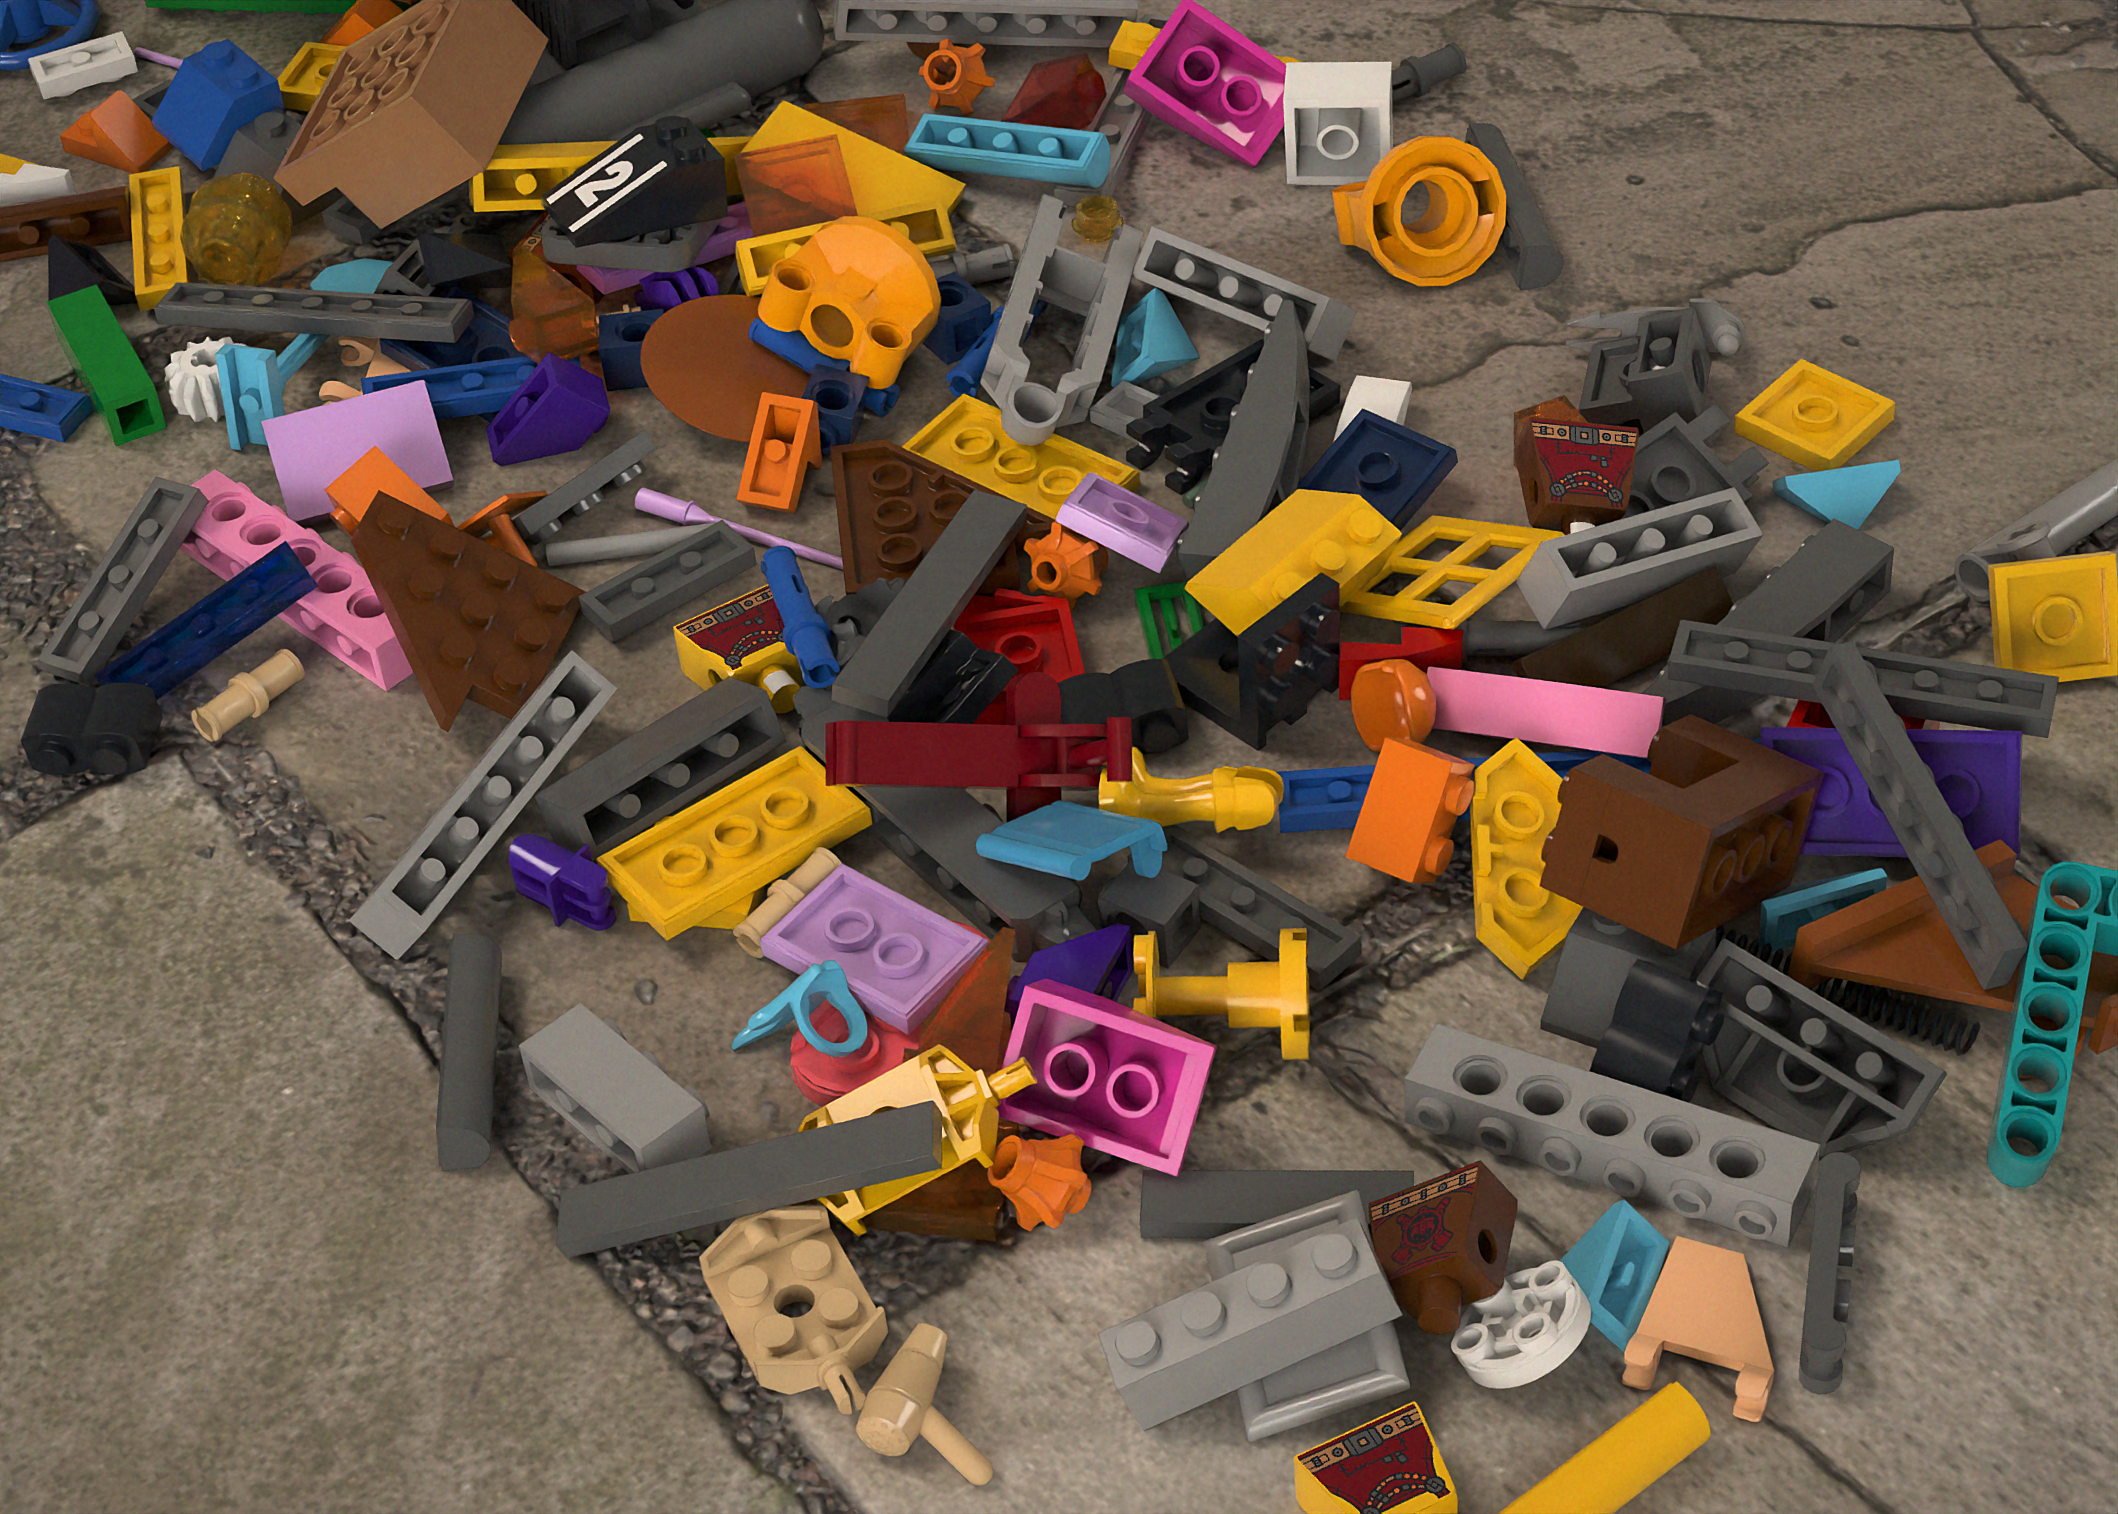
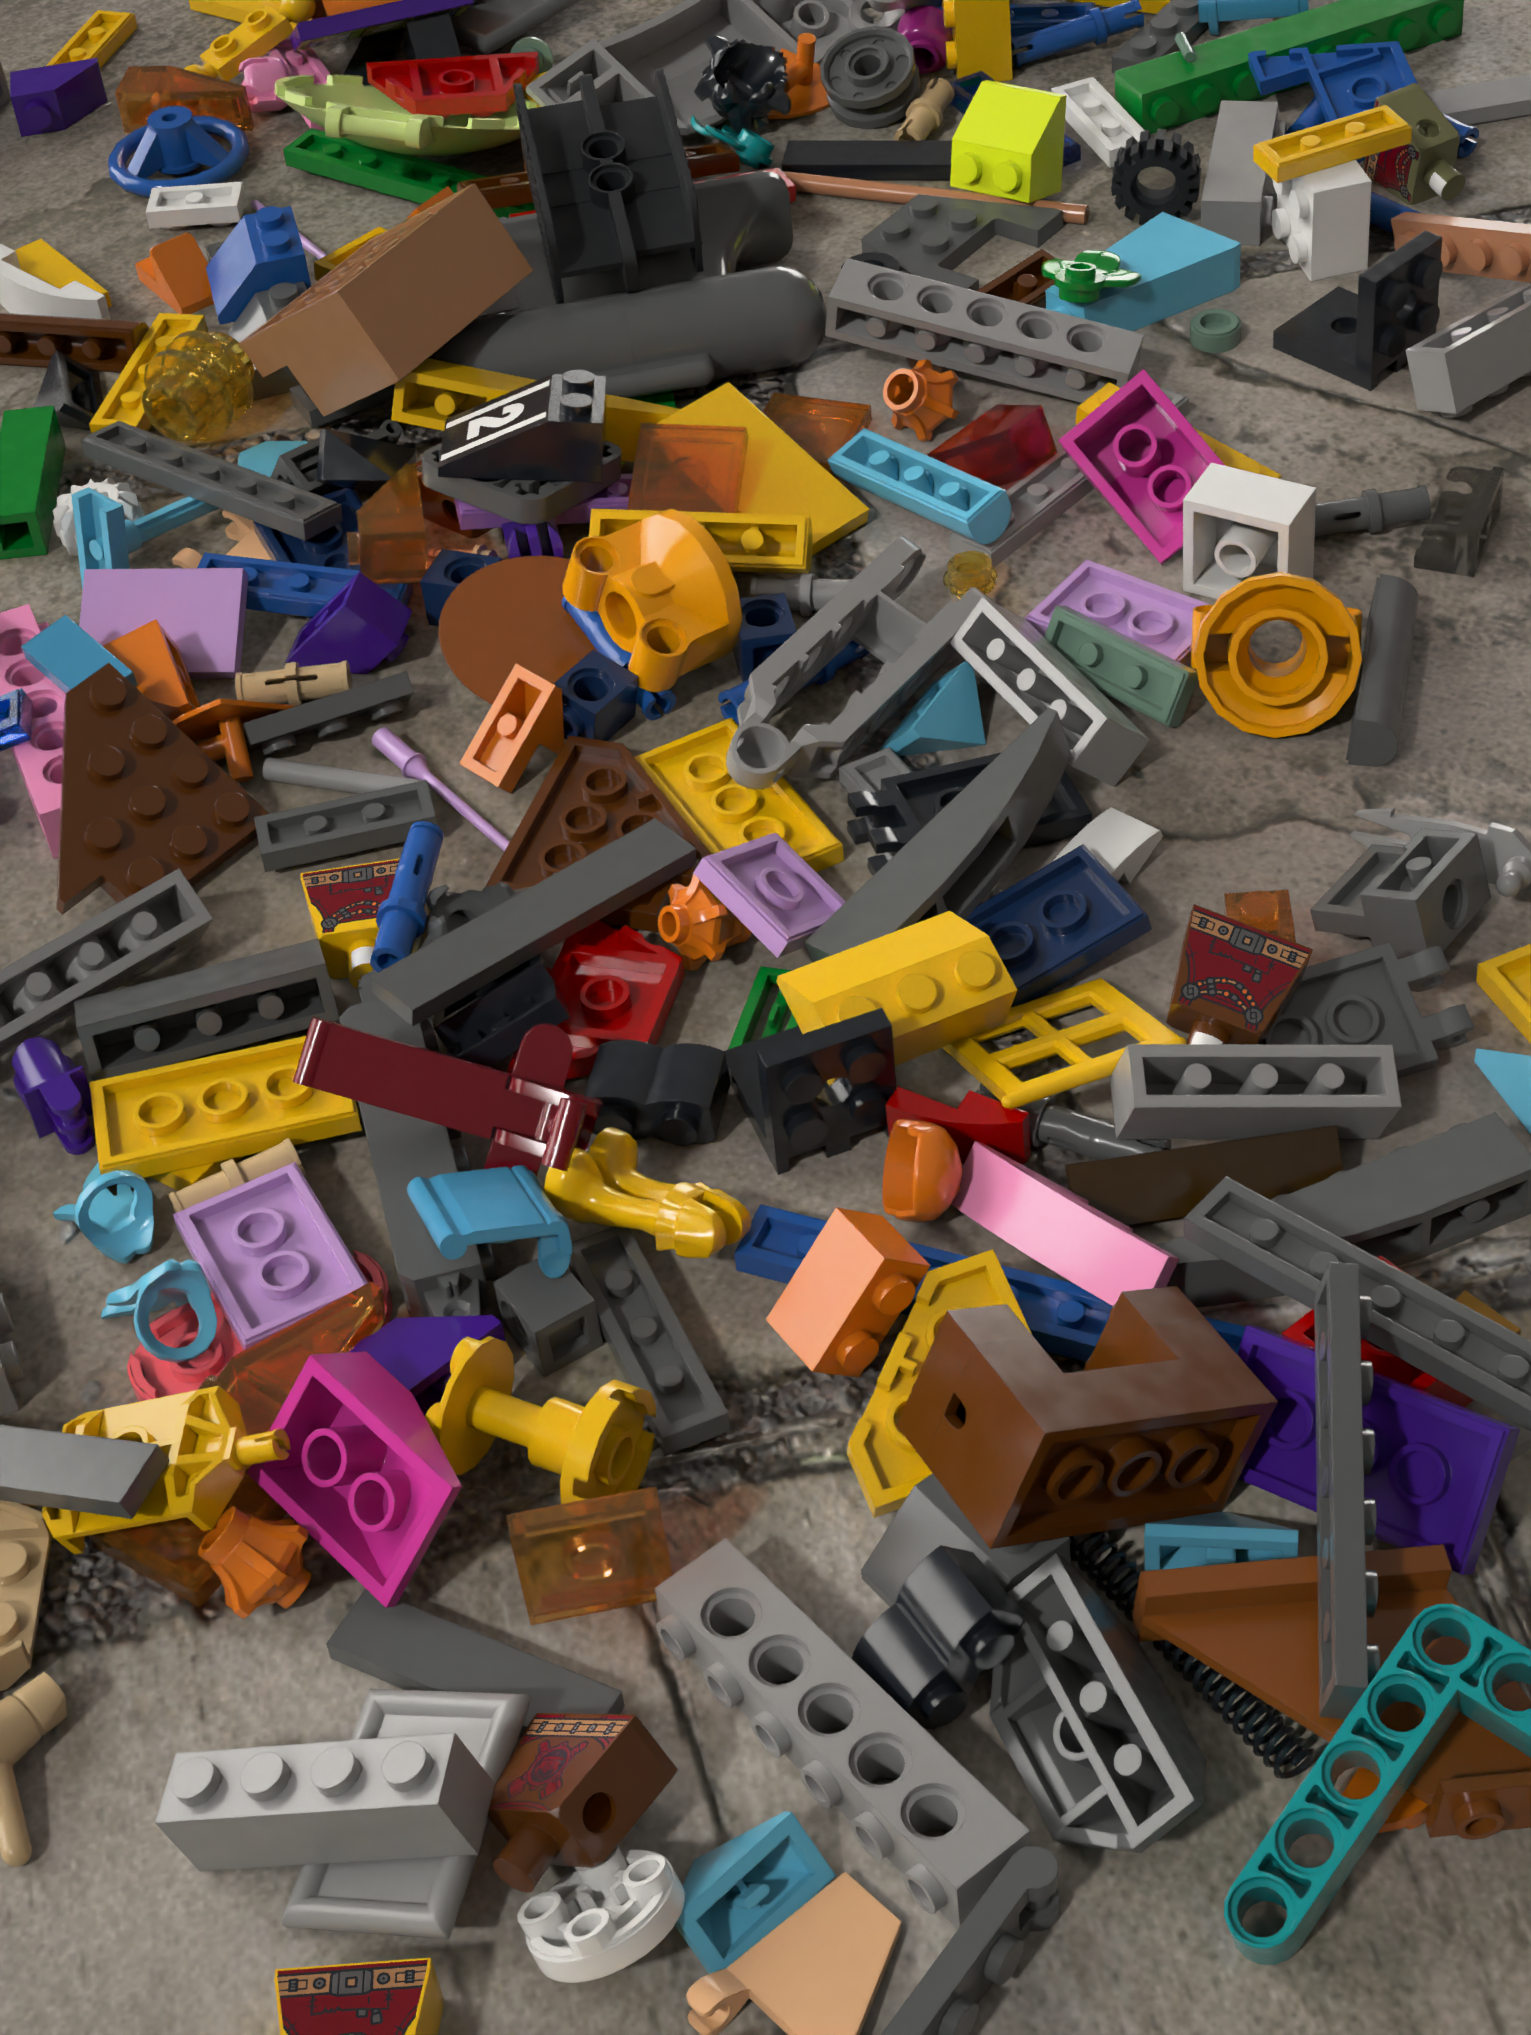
camera: 25 degrees right, 0 degrees up
(314, 505) = (70, 655): none -> dark azure tile
(524, 473) = (294, 683): none -> tan pin
(691, 965) = (118, 1223): none -> medium azure piece
(1260, 222) = (1126, 604): none -> lavender tile
(1306, 260) = (1123, 666): none -> sand green tile
(1336, 1072) = (590, 1554): none -> clear orange tile
(1497, 69) = (1462, 523): none -> clear smoke hinge

